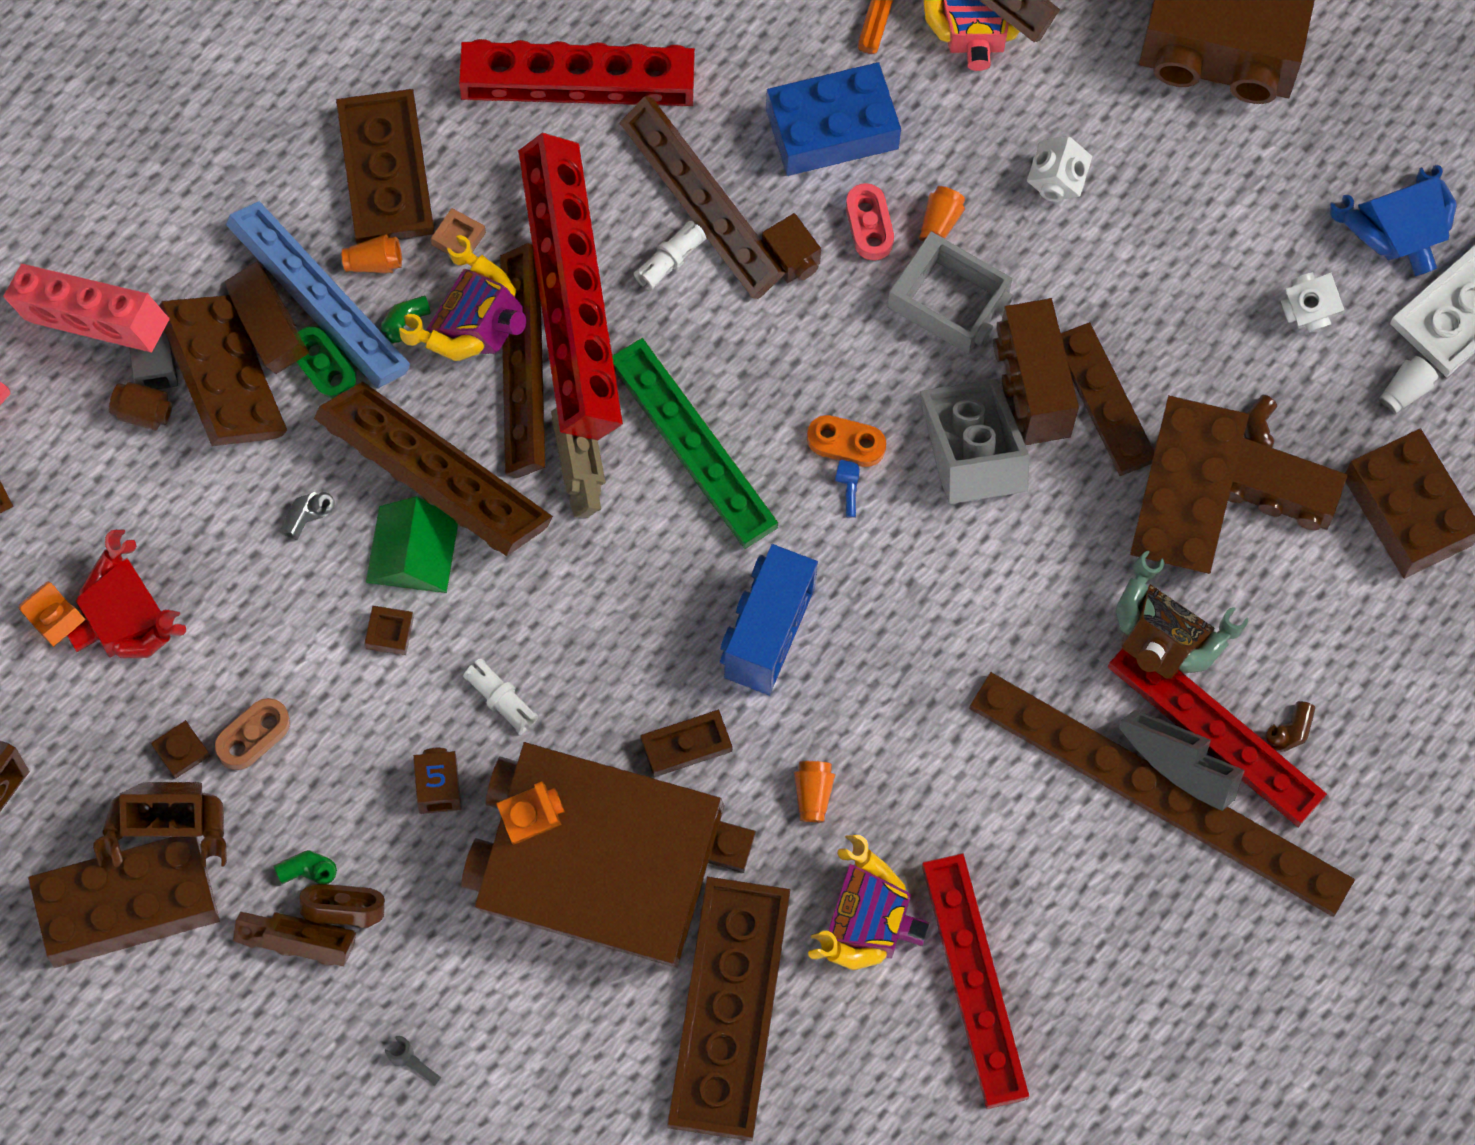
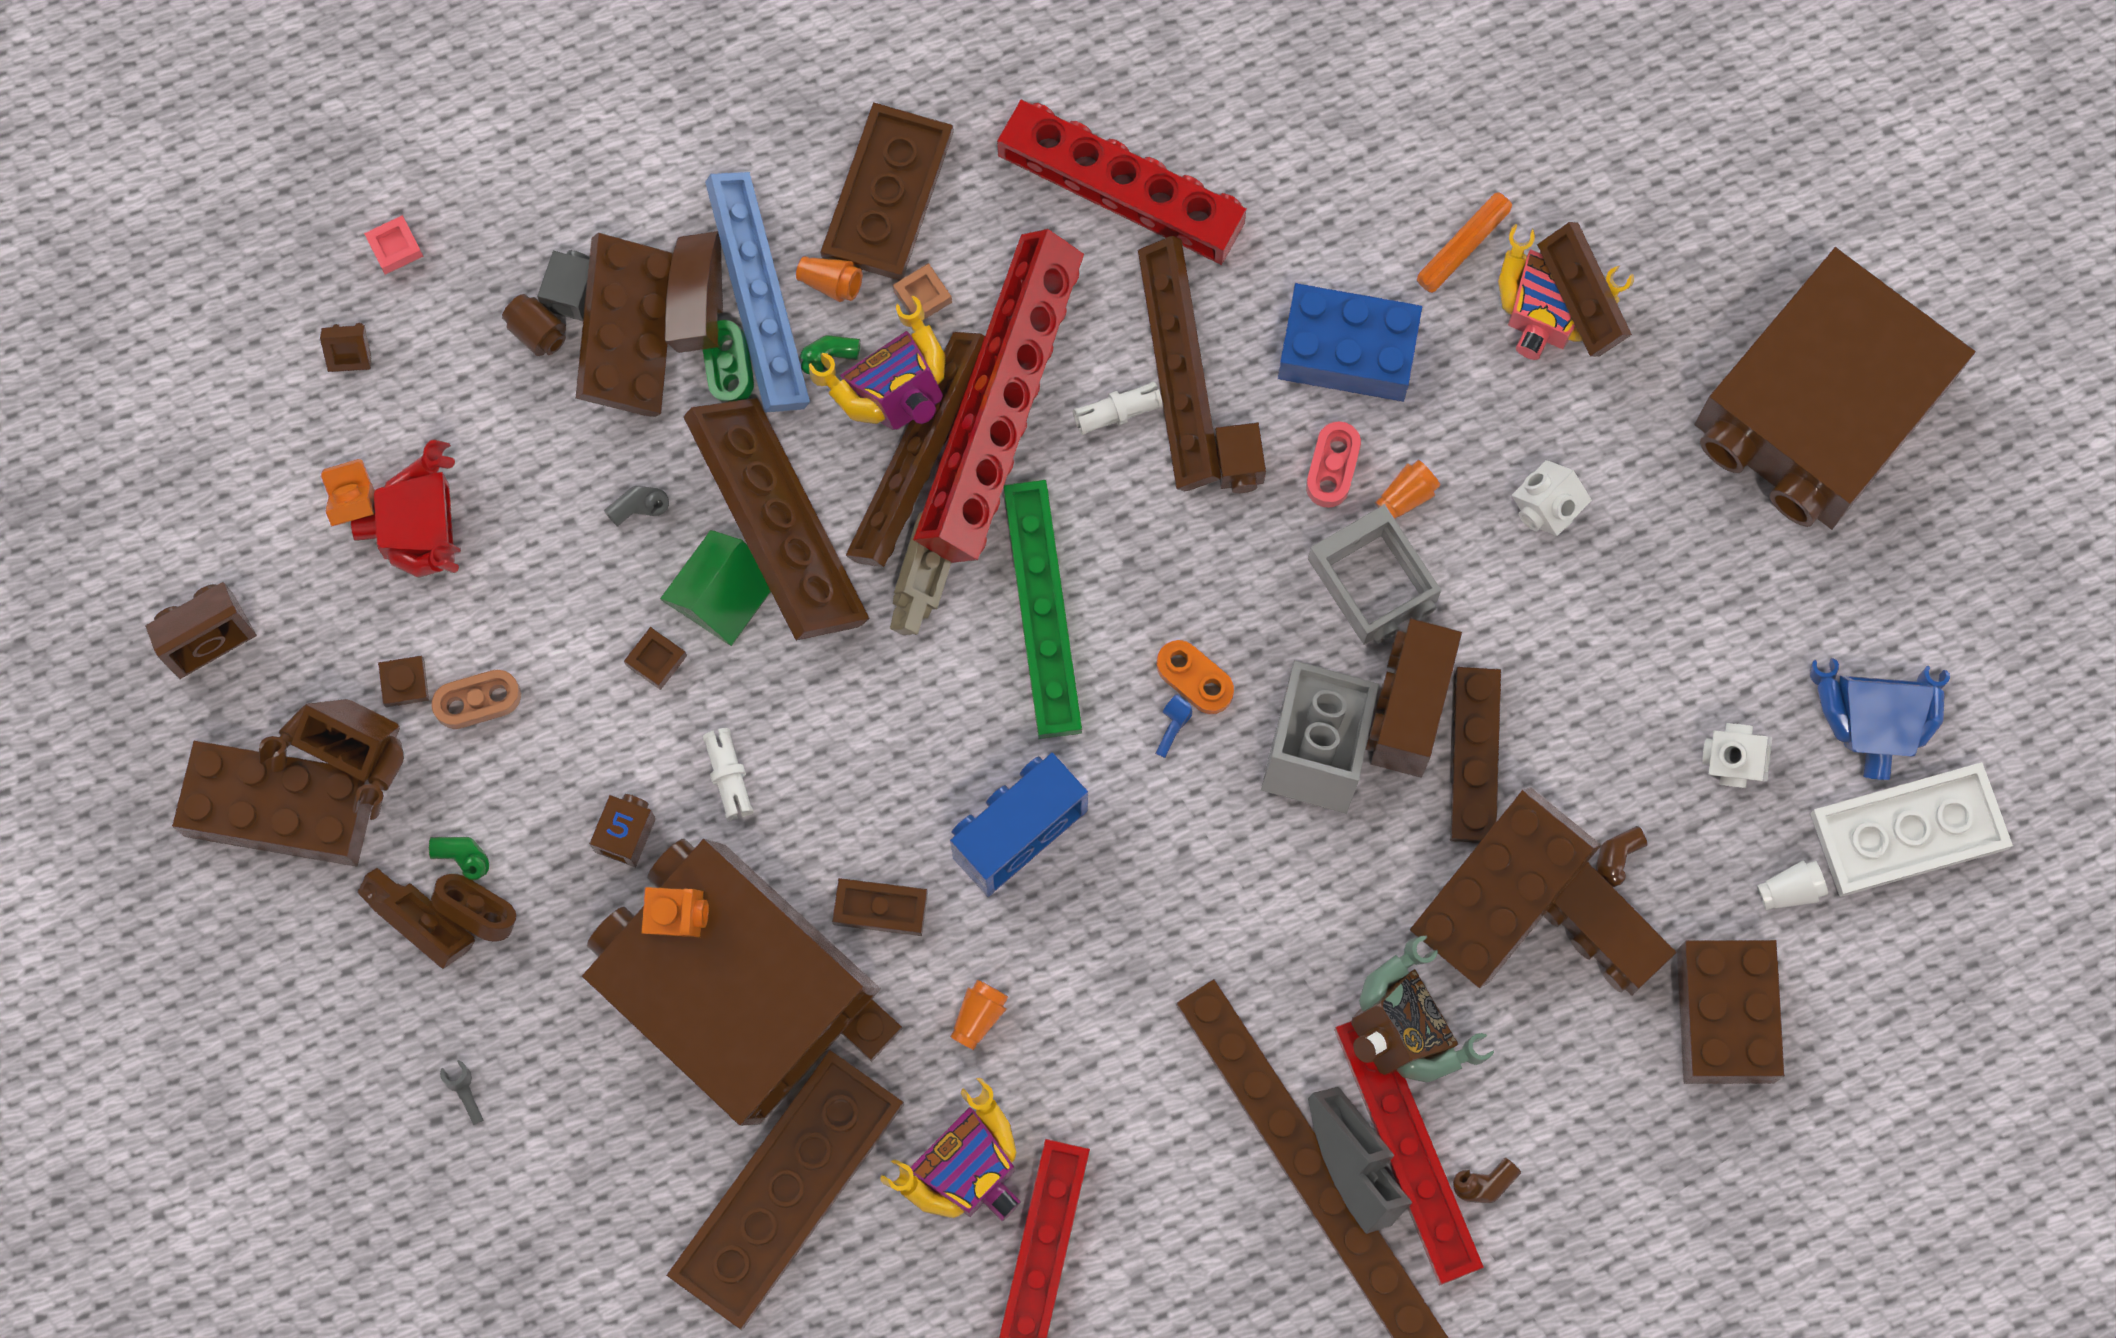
camera: 30 degrees right, 5 degrees up
(86, 307) = (526, 206): coral brick -> none

